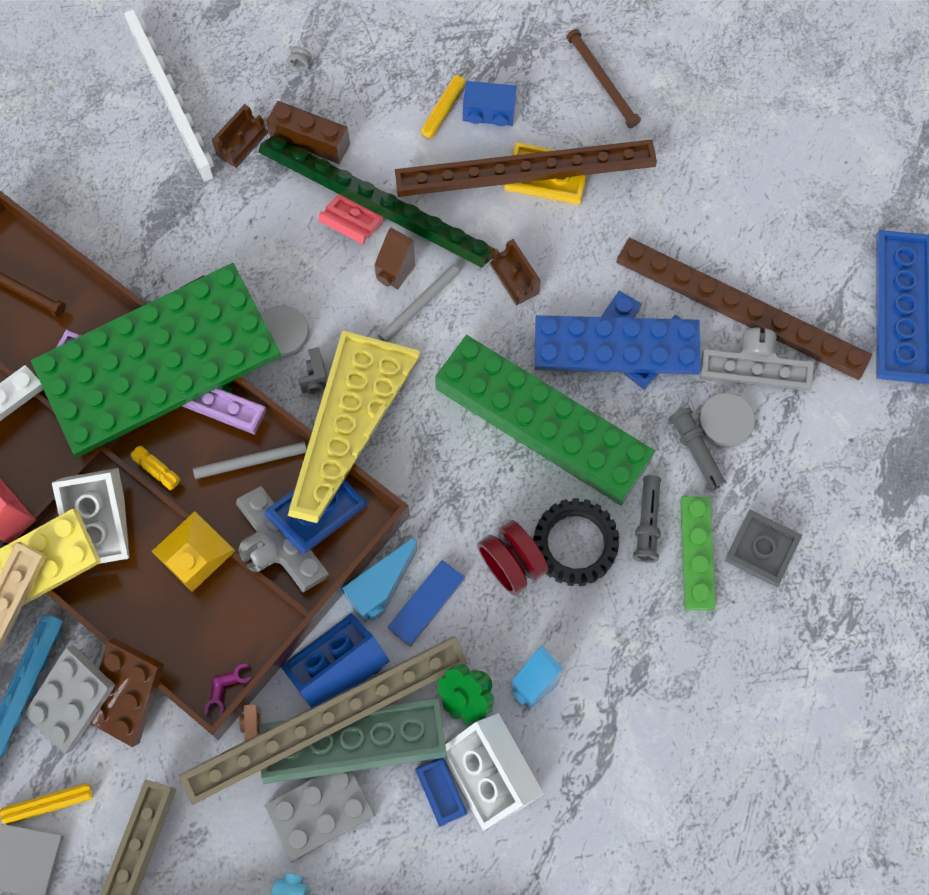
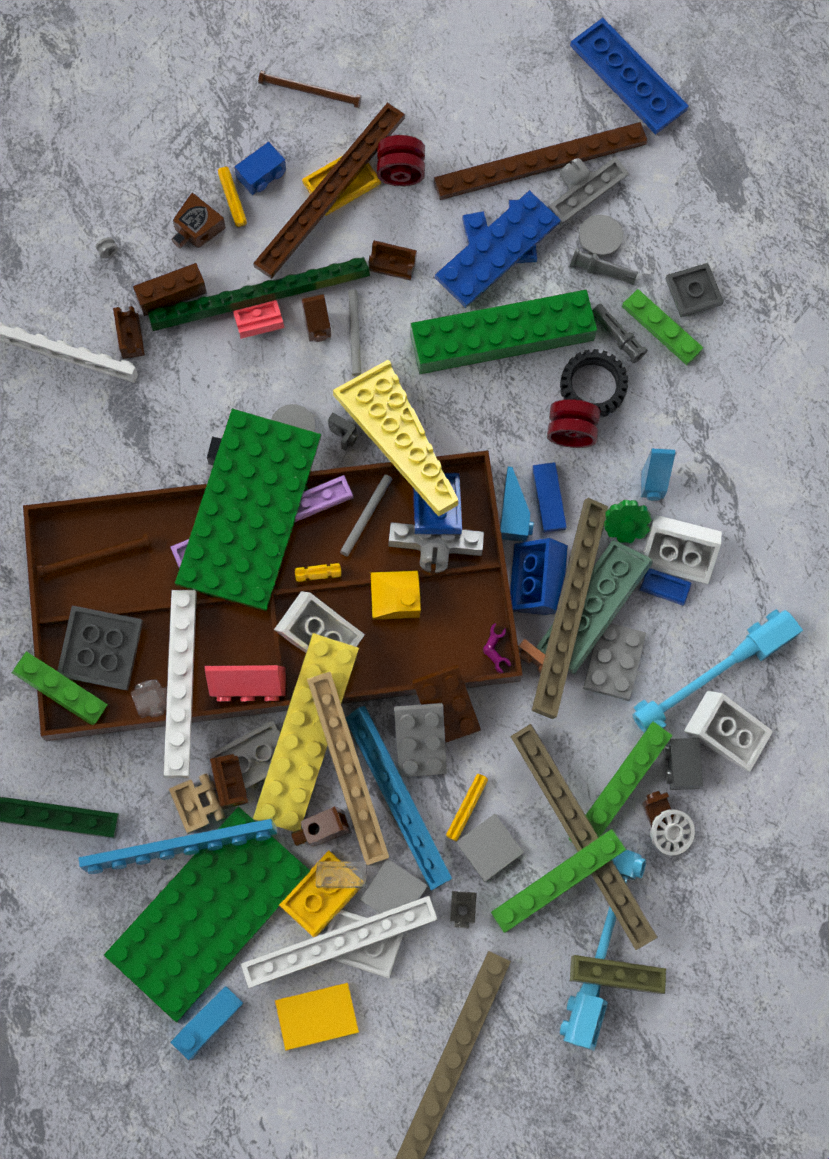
camera: 50 degrees left, 5 degrees up
(388, 100) = (196, 223): none -> reddish brown torso
(610, 195) = (401, 160): none -> dark red wheel

